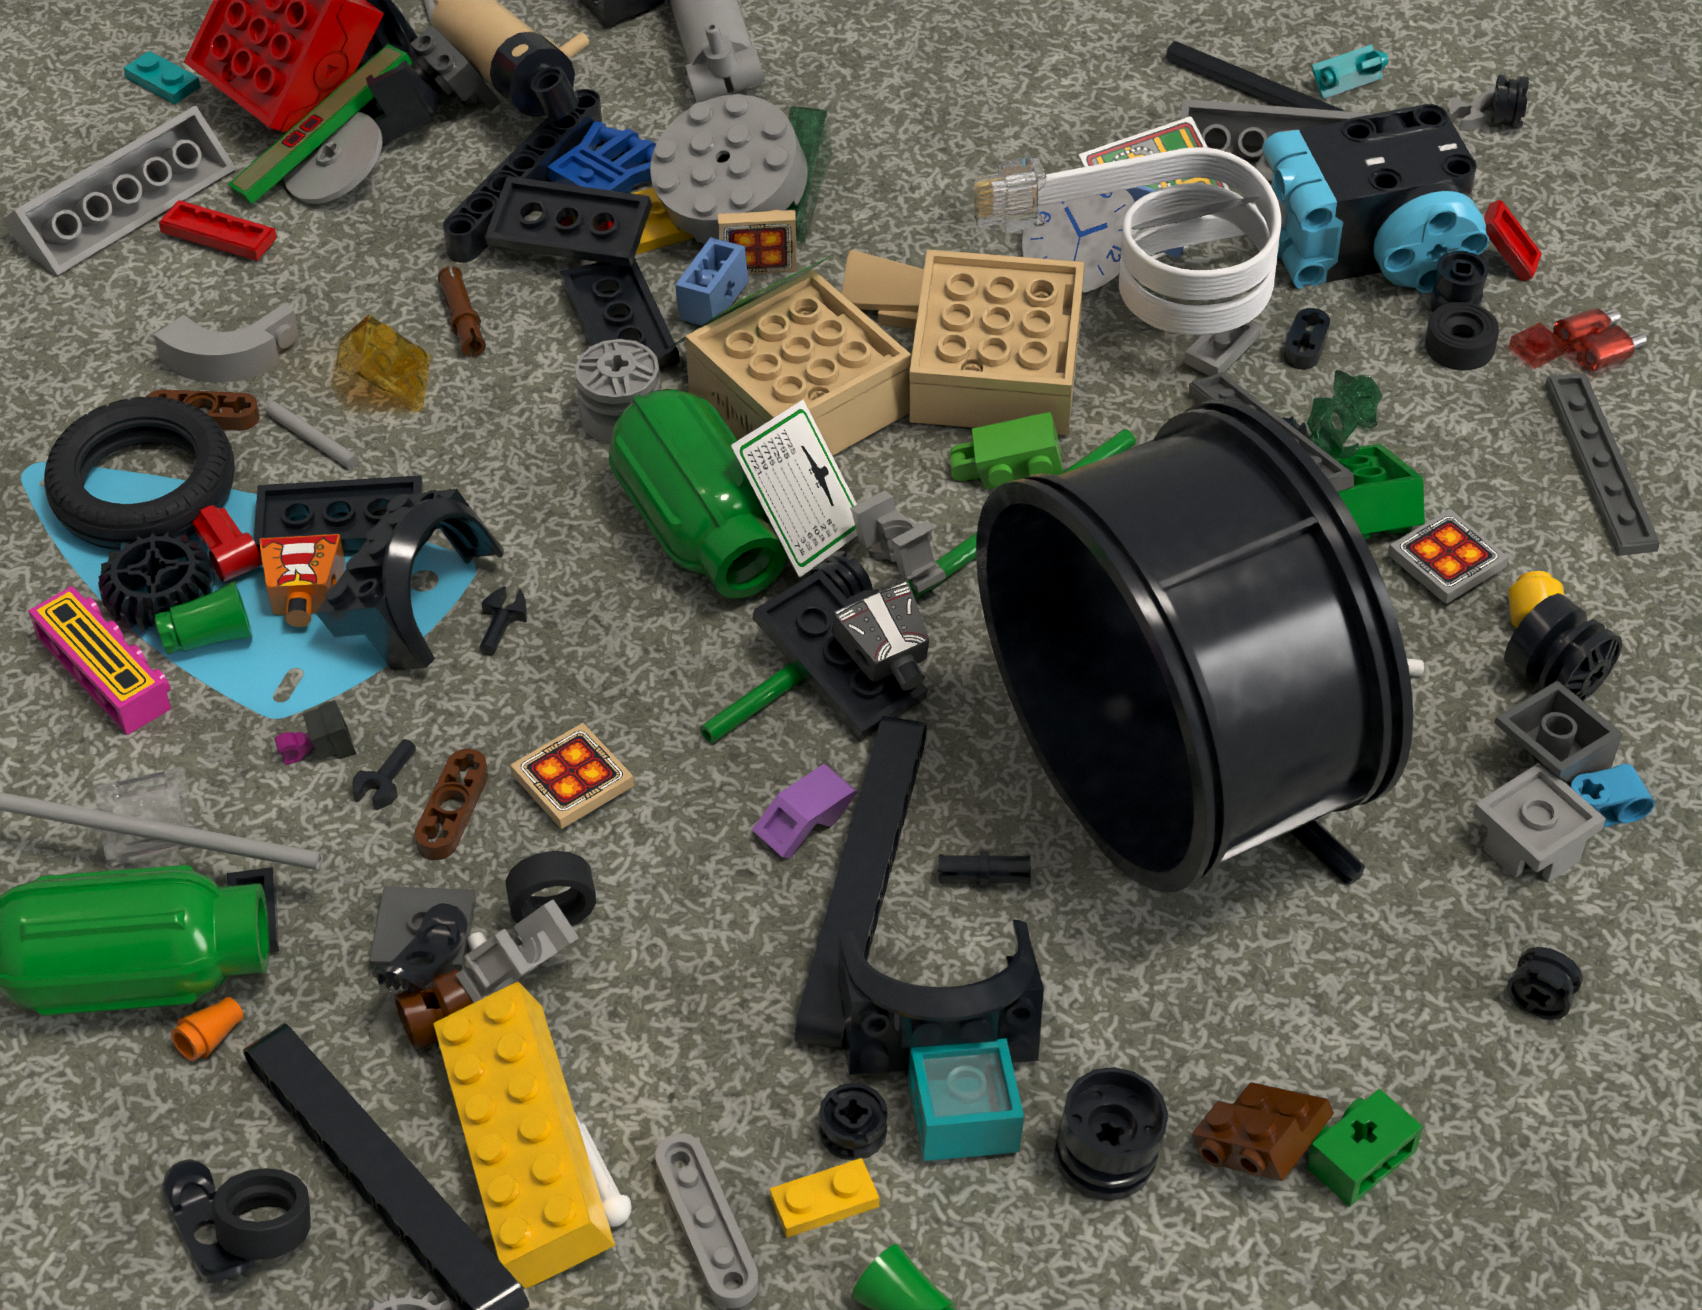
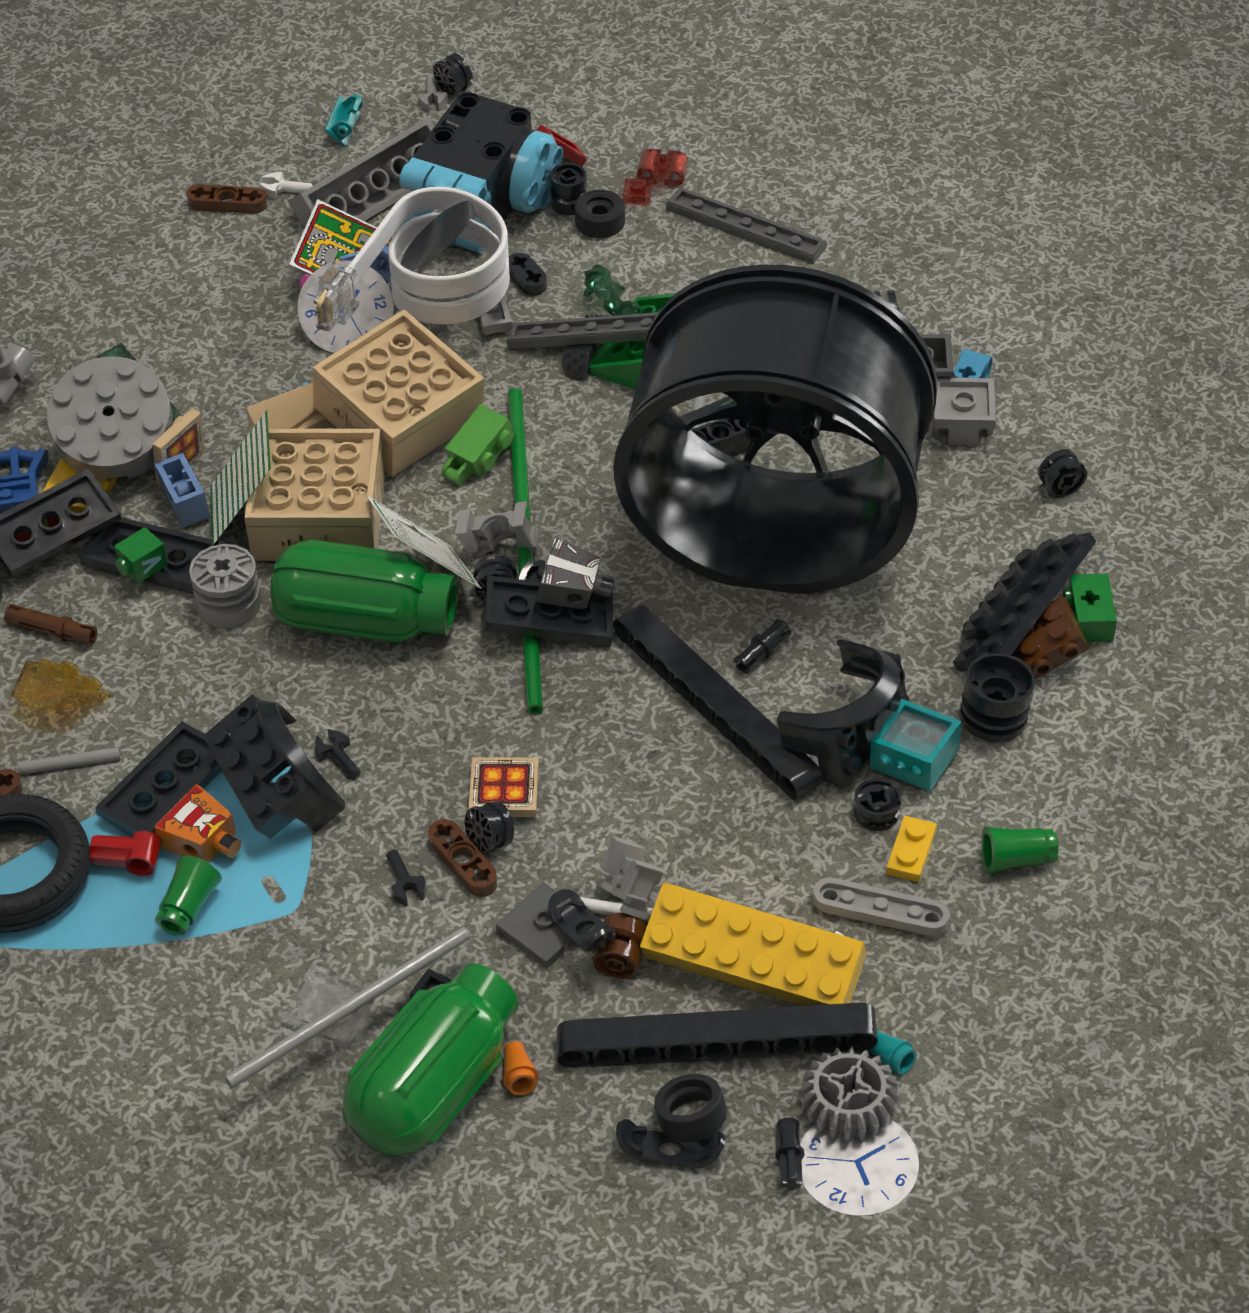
camera: 50 degrees left, 0 degrees up
(101, 659) = (154, 969): brick -> none
(153, 577) = (117, 894): black gear -> none
(325, 733) = (343, 886): pearl dark grey piece -> none
(496, 794) = (489, 826): none -> black wheel
(548, 871) = (591, 839): black tyre -> none
(589, 307) = (140, 555): none -> green brick
(797, 809) = (643, 697): medium lavender slope -> none
(1158, 82) = (246, 194): none -> reddish brown beam
(1207, 87) = (275, 184): none -> white bar
(1242, 79) = (301, 163): black axle -> none
(1295, 1062) = (1021, 597): none -> black plate

